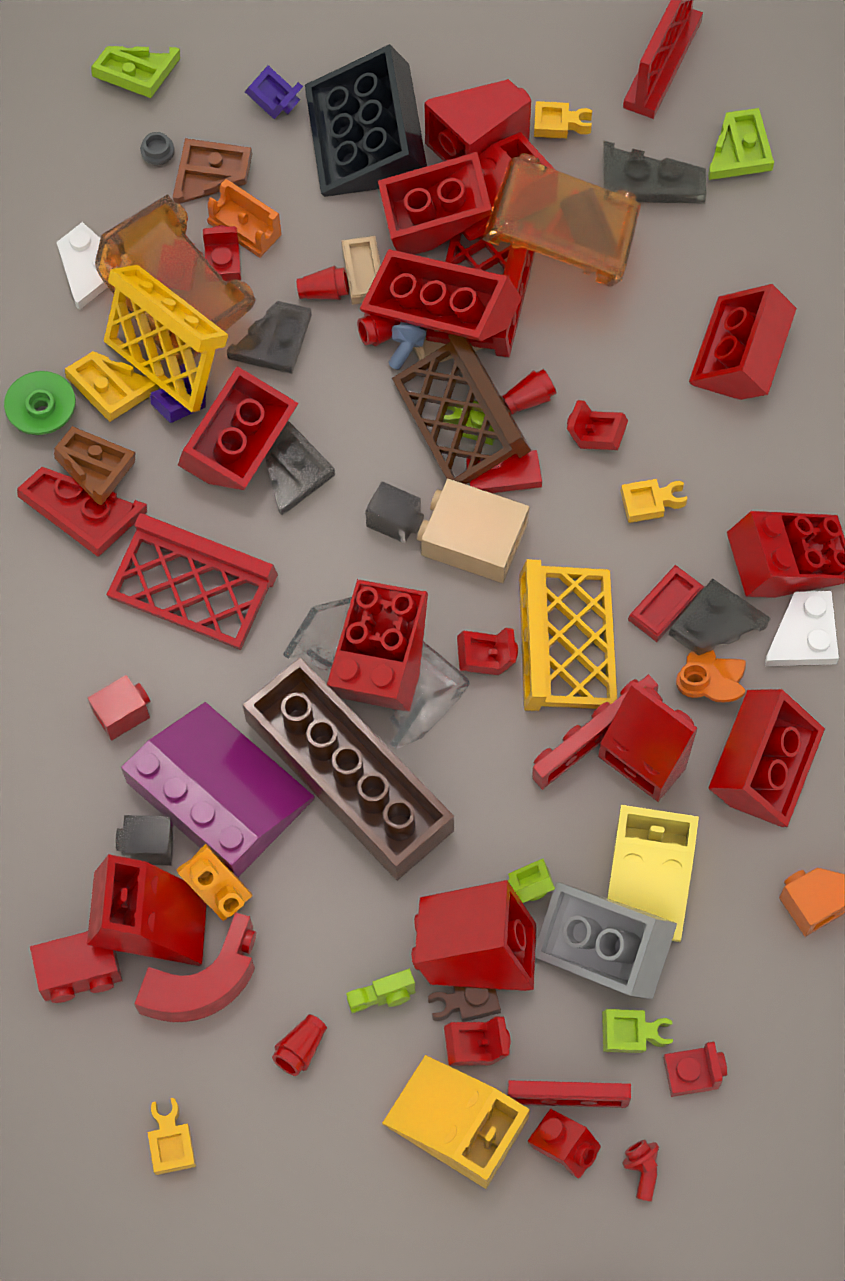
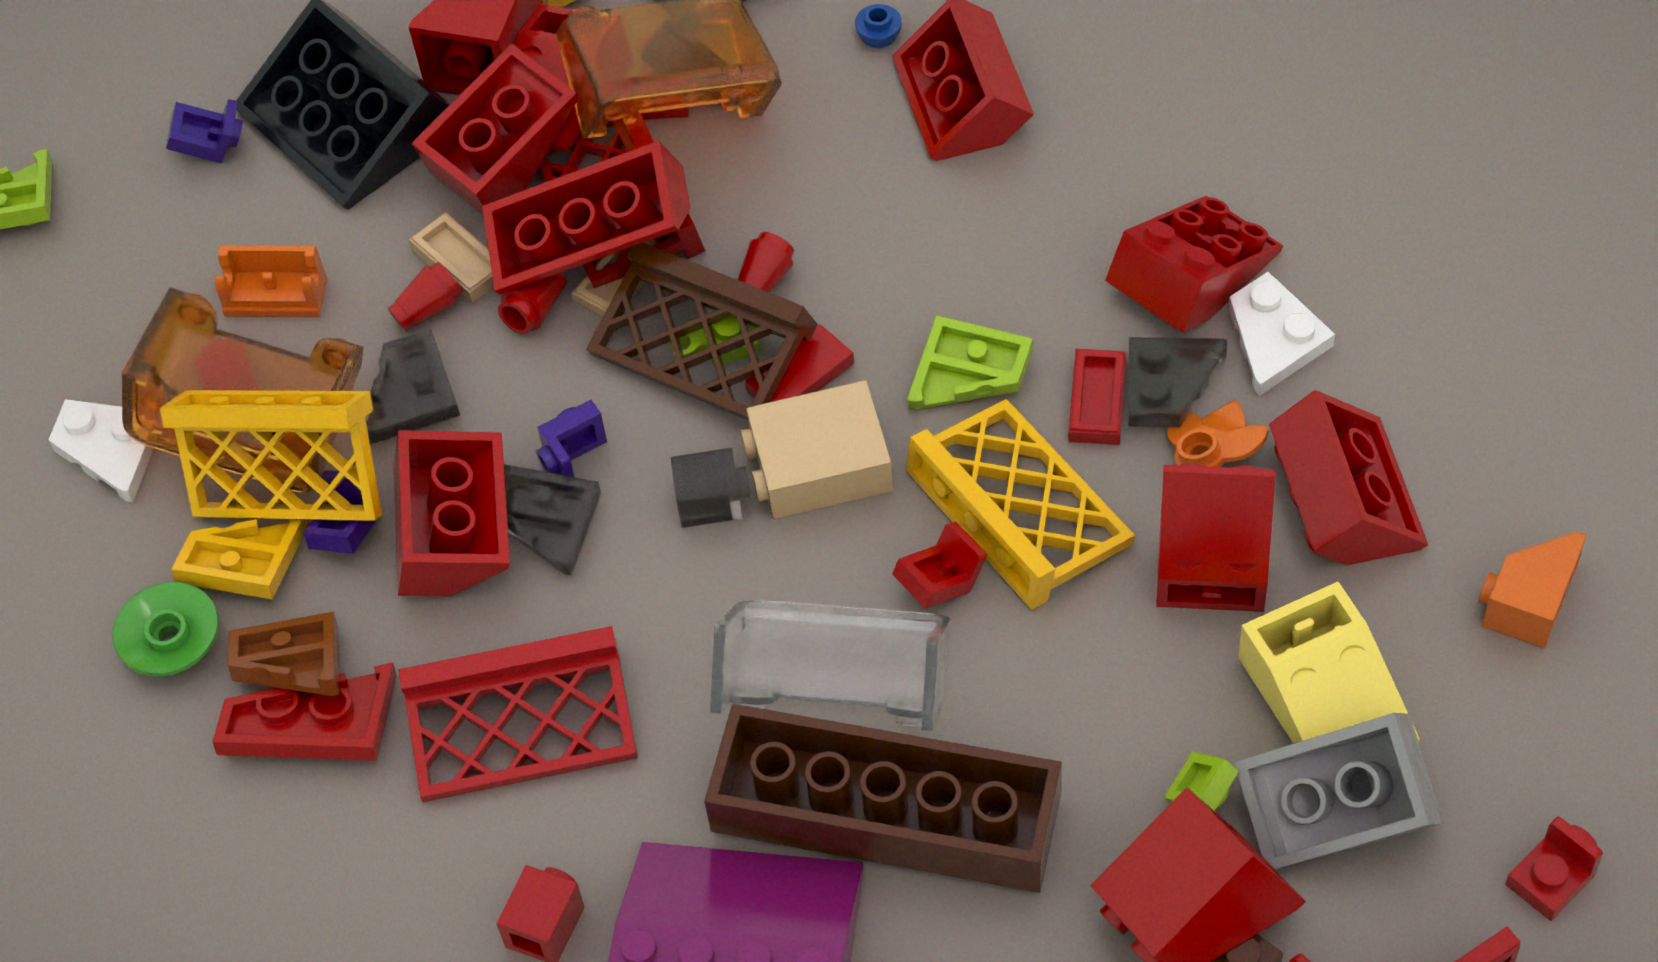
camera: 30 degrees left, 10 degrees down
(157, 148) = (100, 269): dark grey plate -> none
(207, 165) = (185, 248): dark orange wing -> none
(223, 251) = (267, 323): red bracket -> none
(338, 428) = (570, 436): none -> dark purple bracket
(380, 646) = (819, 630): red slope -> none
(408, 337) = (577, 288): sand blue plate -> none
(580, 740) = (1128, 595): plate -> none
(596, 428) = (870, 261): red bracket -> none
(603, 532) = (968, 364): none -> lime wing
(628, 1032) = (1448, 877): lime plate -> none
(647, 501) = (991, 300): yellow plate -> none
(721, 277) = (878, 25): none -> blue plate

